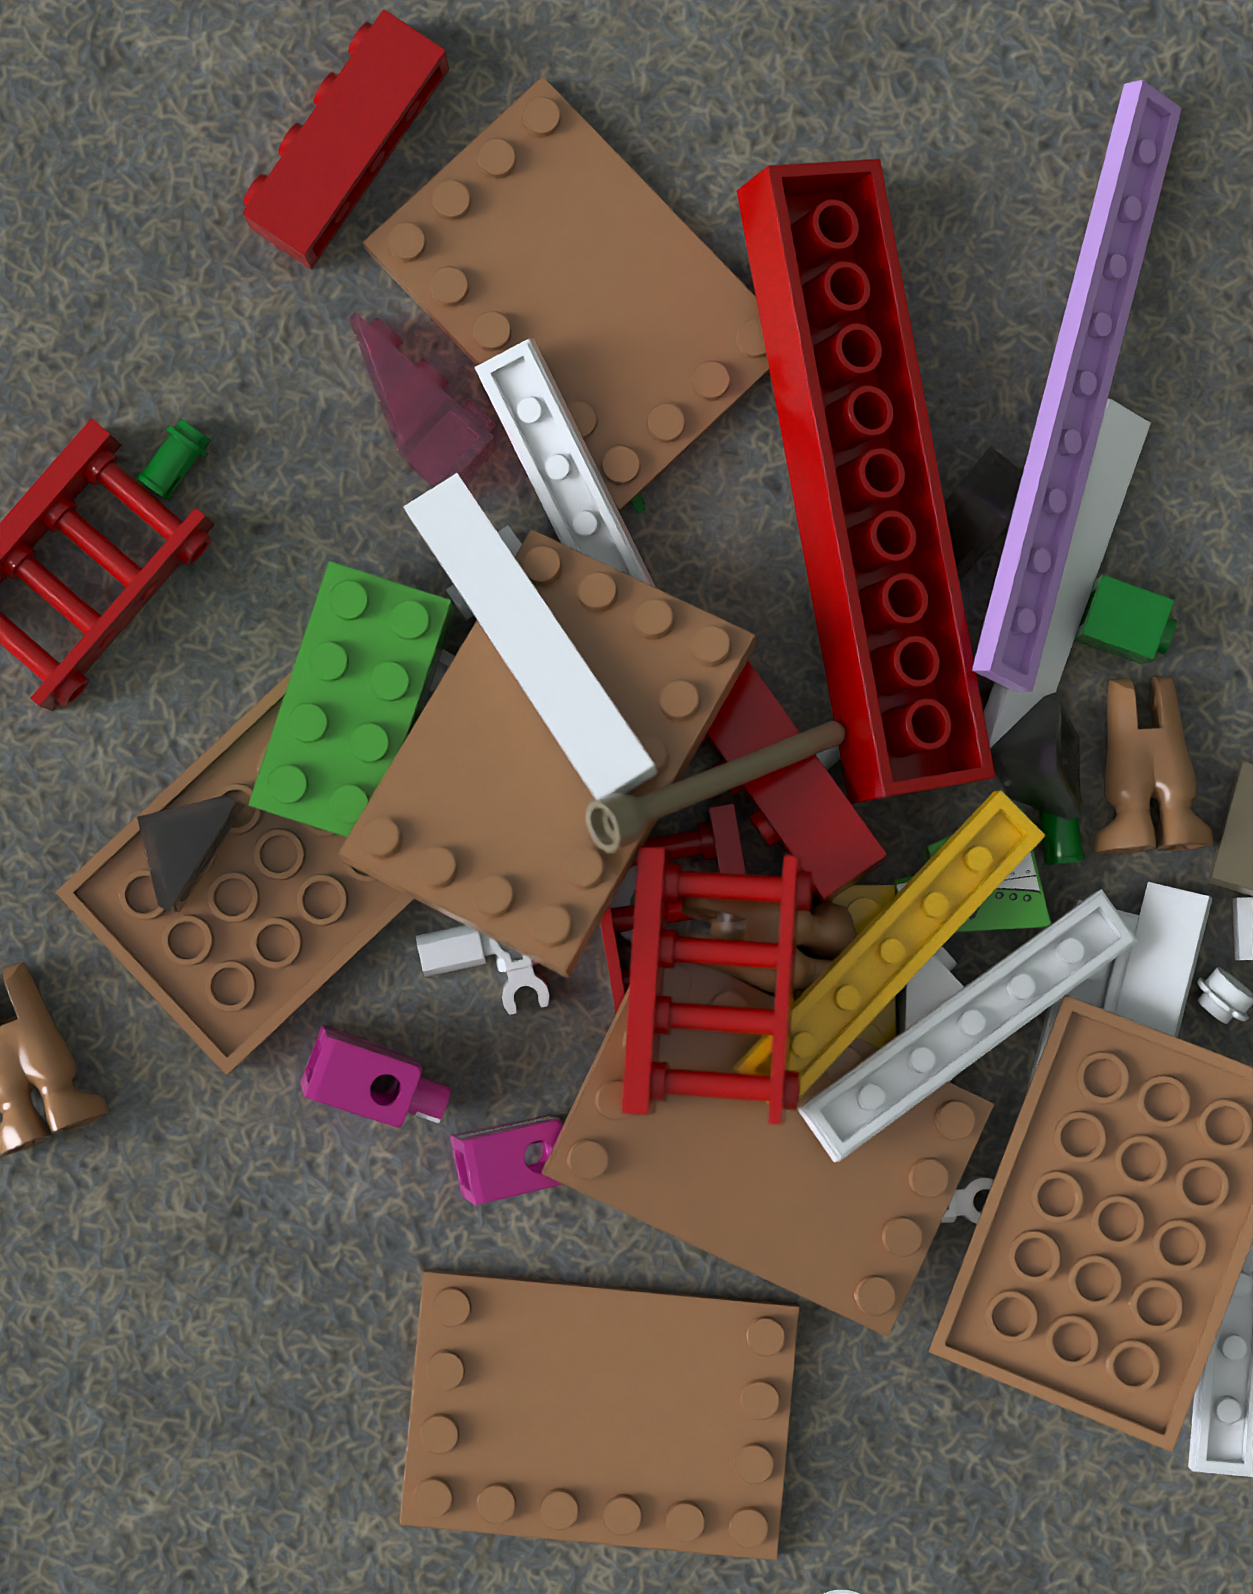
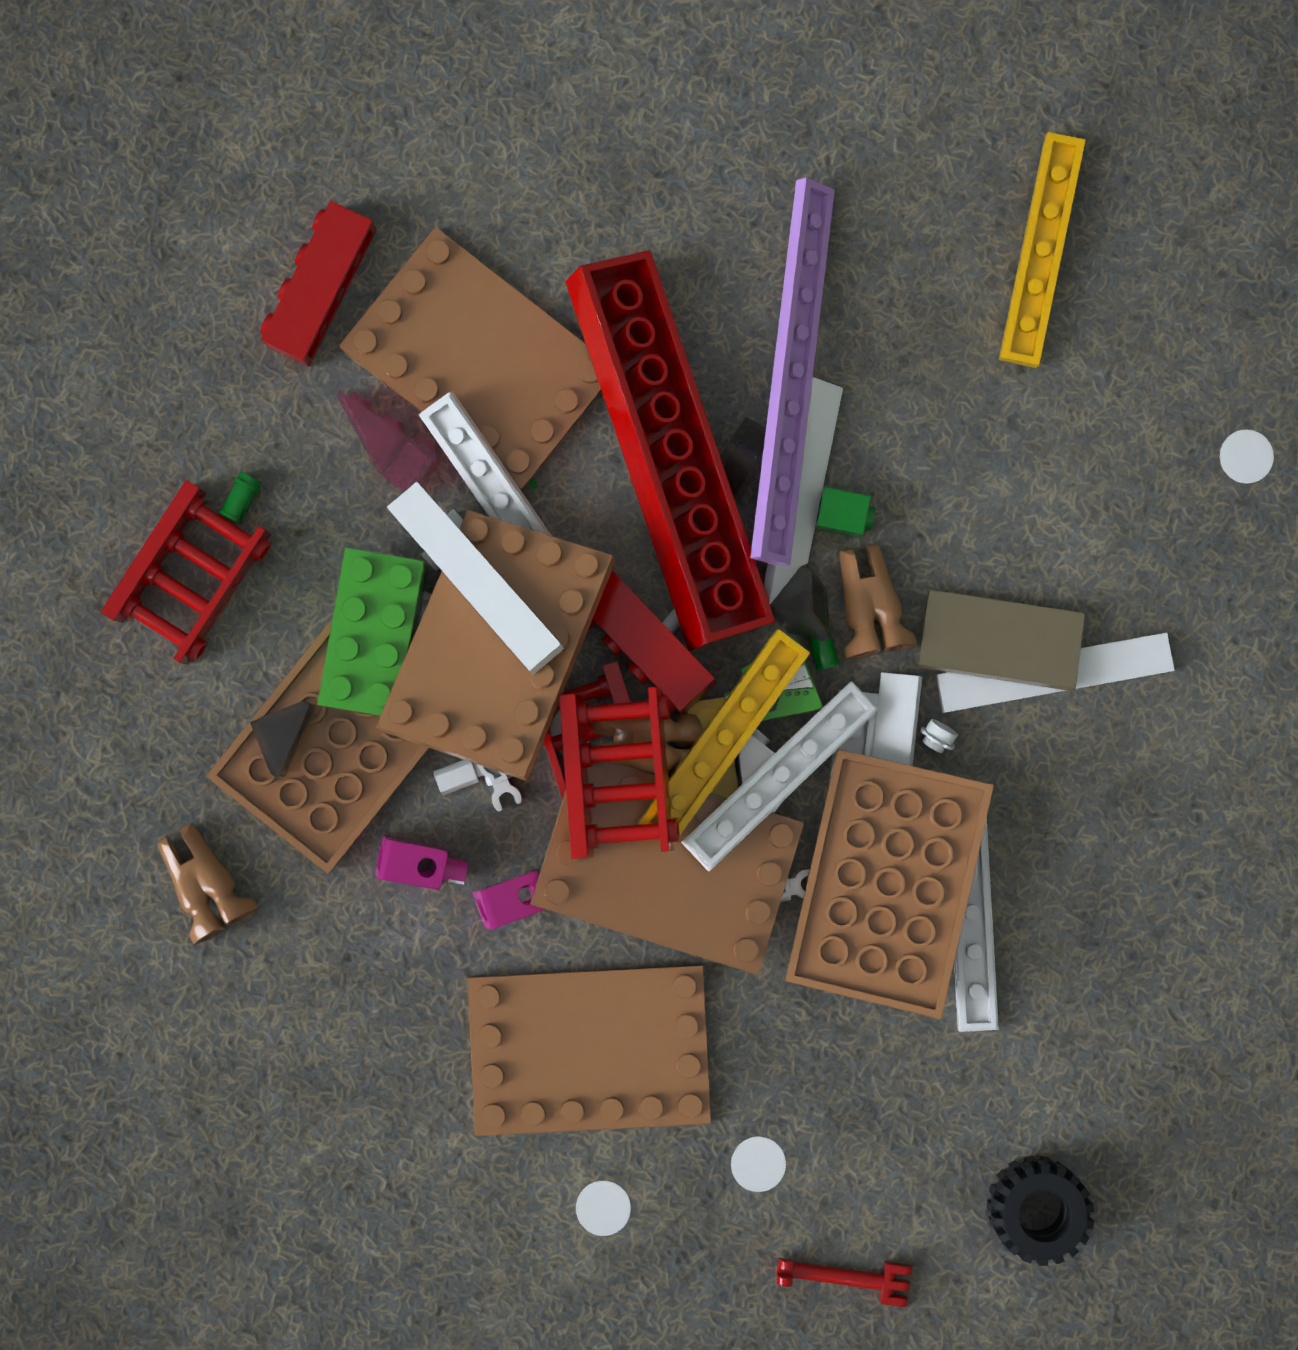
camera: 10 degrees left, 0 degrees up
(620, 819) = (545, 679): dark tan piece -> none

